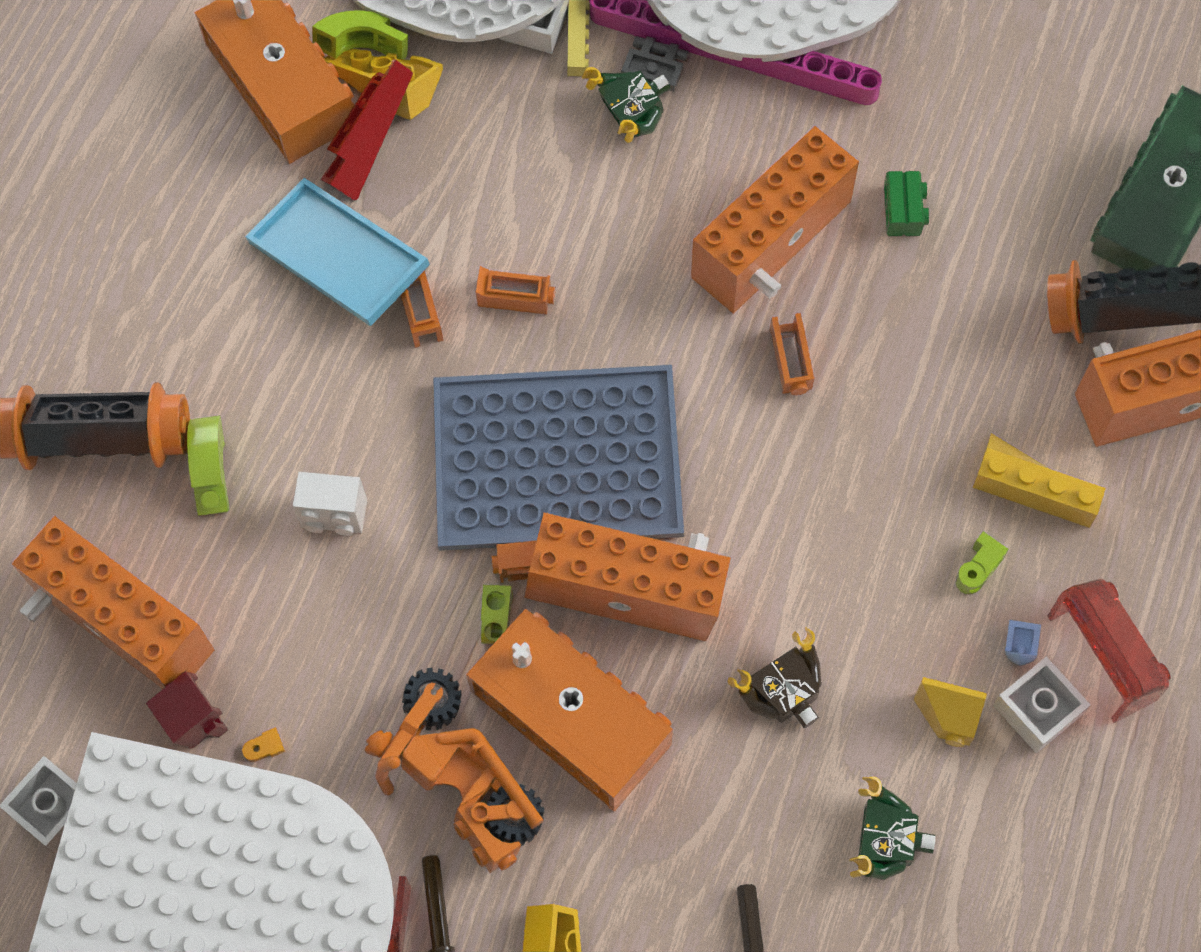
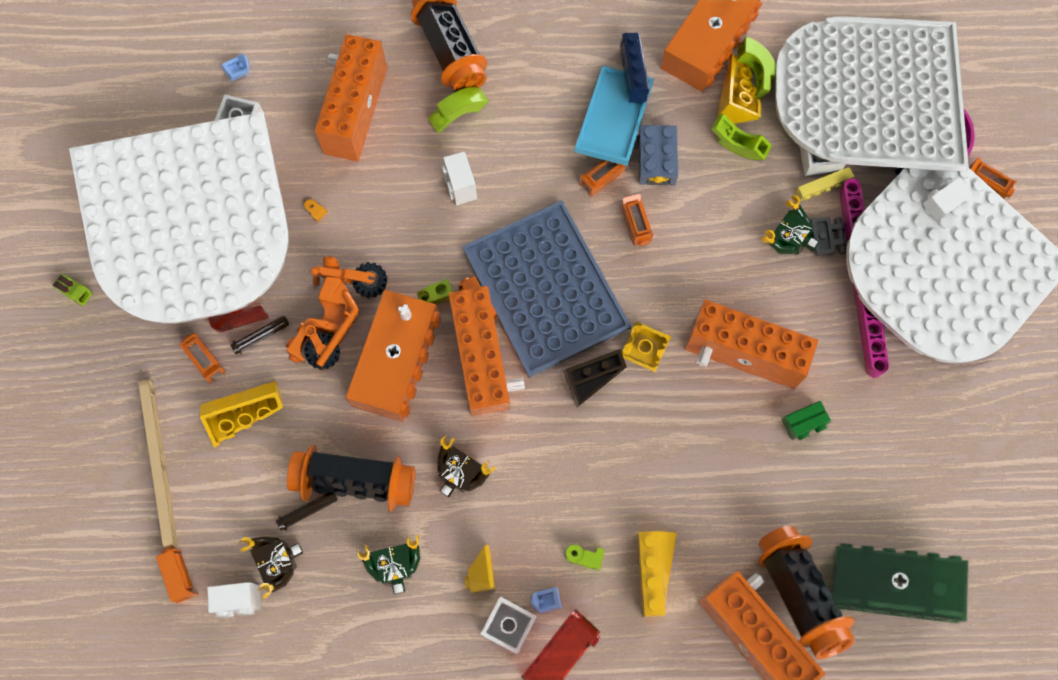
camera: 65 degrees right, 5 degrees up
(186, 712) = (313, 161): dark red plate -> none
(277, 192) = (634, 68): none -> dark blue brick
(365, 130) = (695, 95): red wedge -> none
(429, 220) = (658, 154): none -> sand blue piece
(464, 107) = (739, 142): none -> lime arch
(708, 359) = (645, 346): none -> yellow slope
(723, 444) = (592, 375): none -> dark brown wedge
(736, 840) = (351, 477): none -> black brick
(792, 356) = (670, 392): orange window -> none

